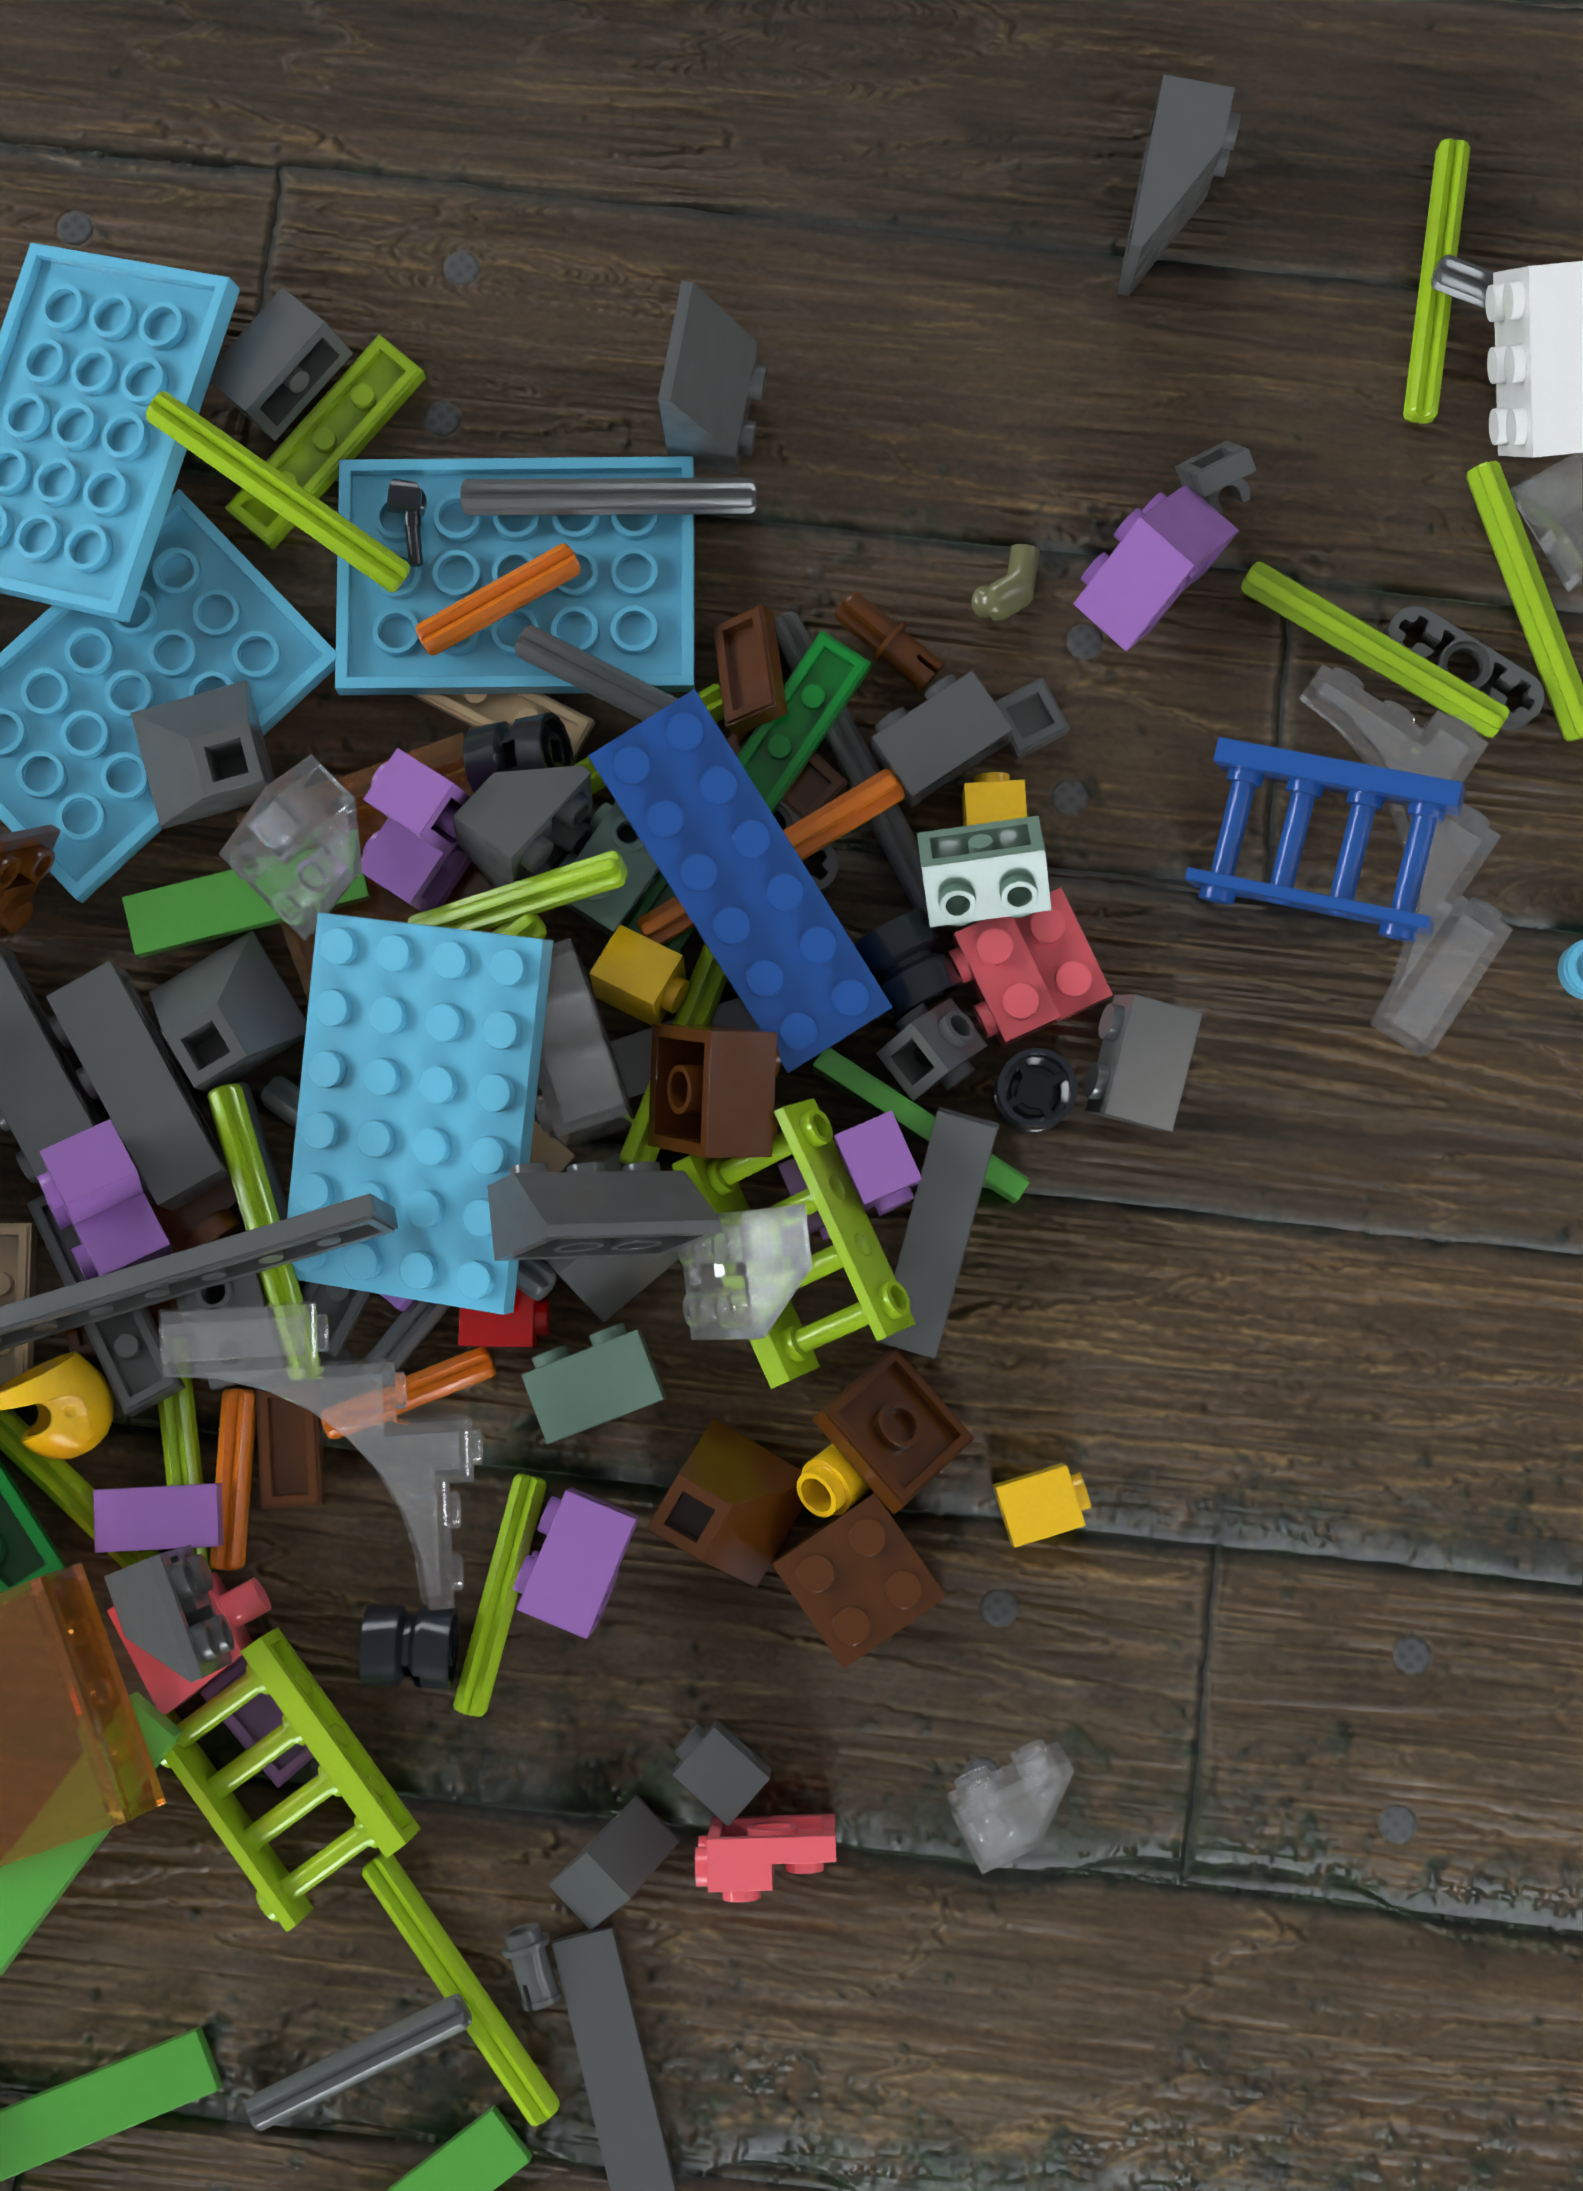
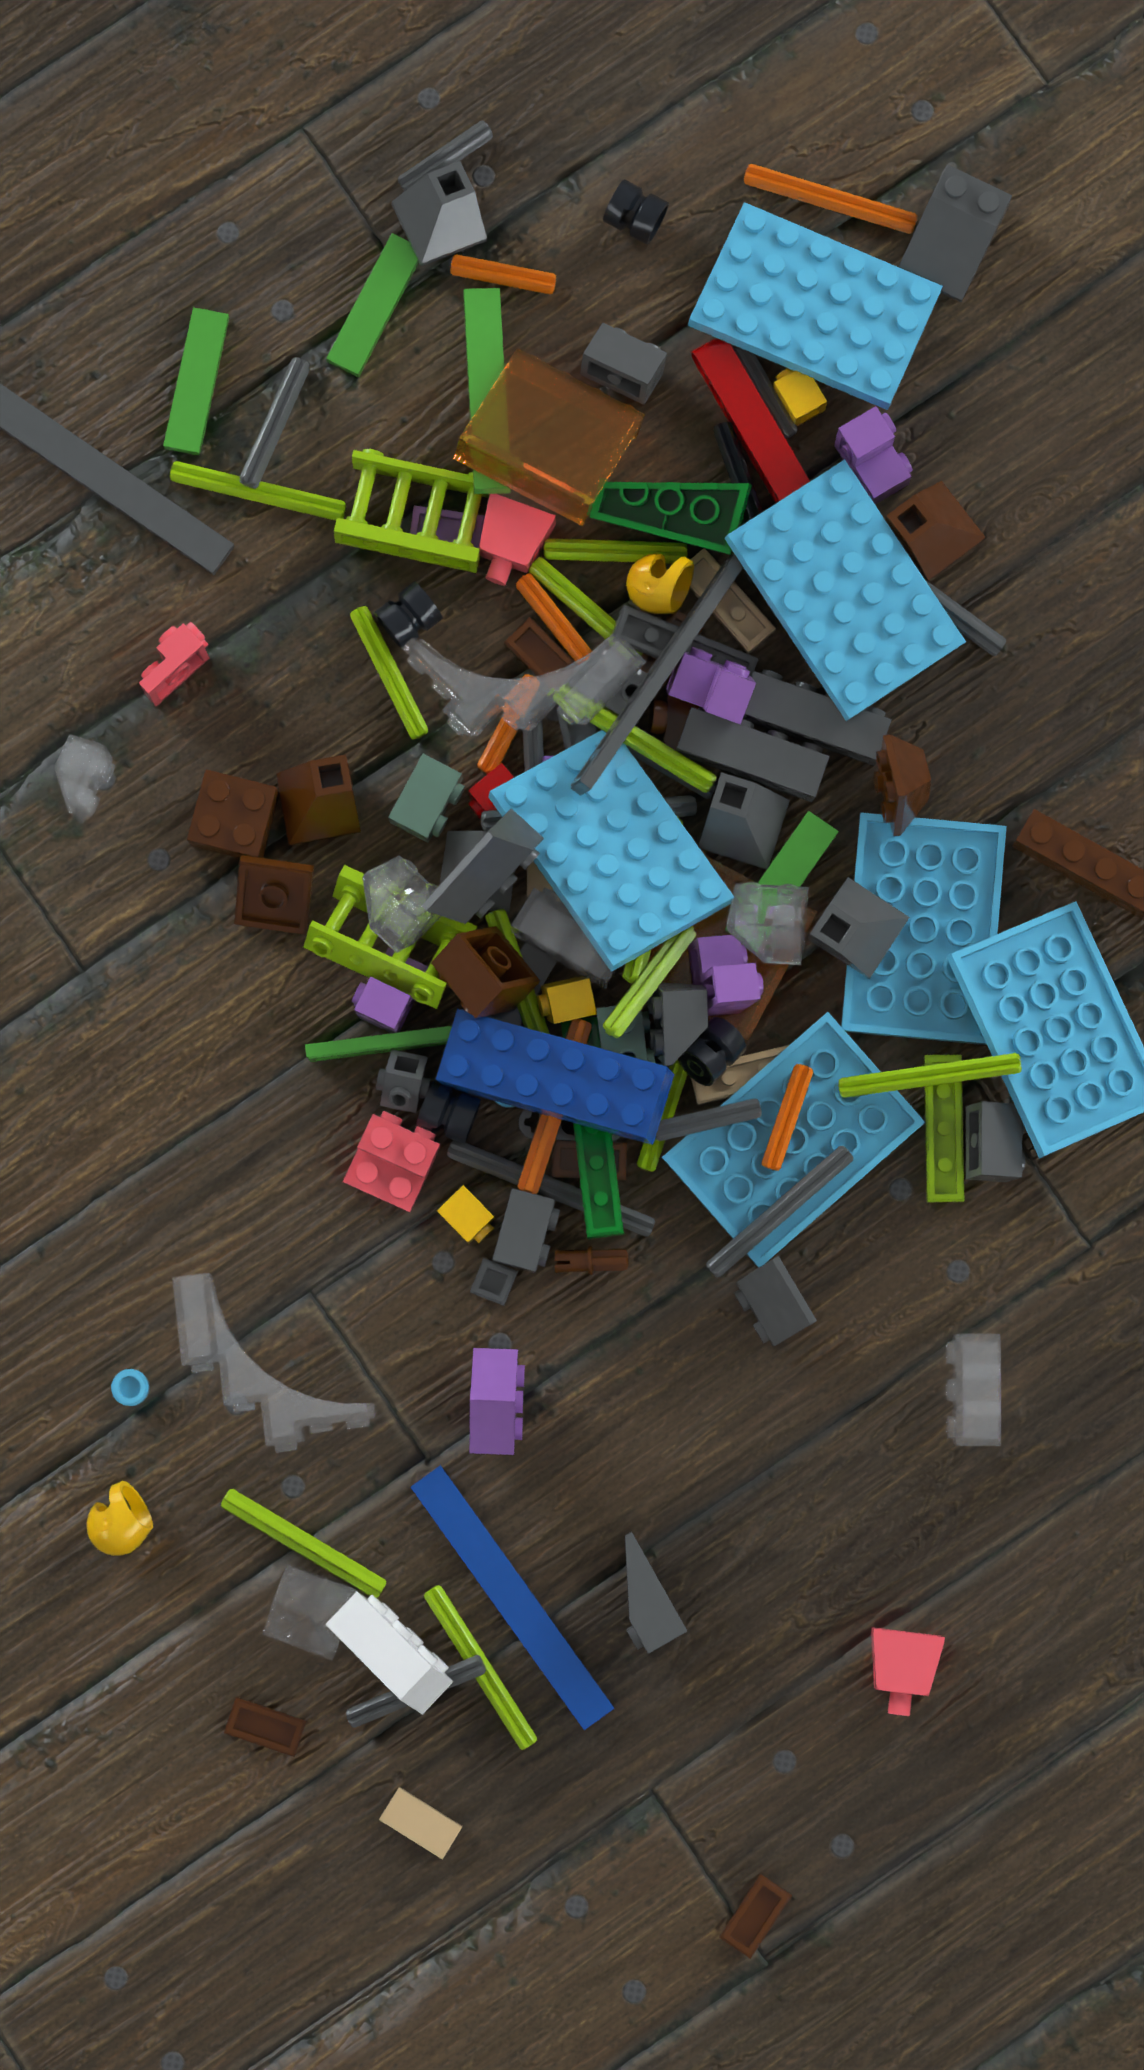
camera: 135 degrees right, 0 degrees up
(158, 1517) = (570, 574): medium lavender tile -> none
(170, 1613) = (523, 538): dark grey slope -> none
(409, 499) = (870, 1128): black hand -> none
(531, 1966) = (234, 527): dark grey pin -> none
(564, 103) = (974, 1390): none -> clear brick
(577, 1563) = (362, 712): medium lavender brick -> none
(614, 1863) = (235, 601): dark grey slope -> none
(720, 1770) = (223, 680): dark grey brick -> none
(749, 670) = (642, 1187): reddish brown tile -> none
(830, 1484) = (281, 844): yellow brick -> none
(941, 1225) = (330, 1003): dark grey tile -> none
(984, 871) = (448, 1179): sand green brick -> none
(1012, 591) = (553, 1335): olive arm -> none
(1034, 1091) = (340, 1102): black wheel -> none
(1042, 1504) = (179, 919): yellow brick -> none
(1141, 1061) = (302, 1158): dark grey brick -> none
(1216, 469) = (505, 1476): dark grey tile -> none
(1328, 332) = (512, 1597): none -> blue tile
(1366, 791) = (302, 1368): blue fence -> none
(1374, 649) = (358, 1452): lime axle -> none
(1488, 660) = (280, 1476): dark grey beam -> none

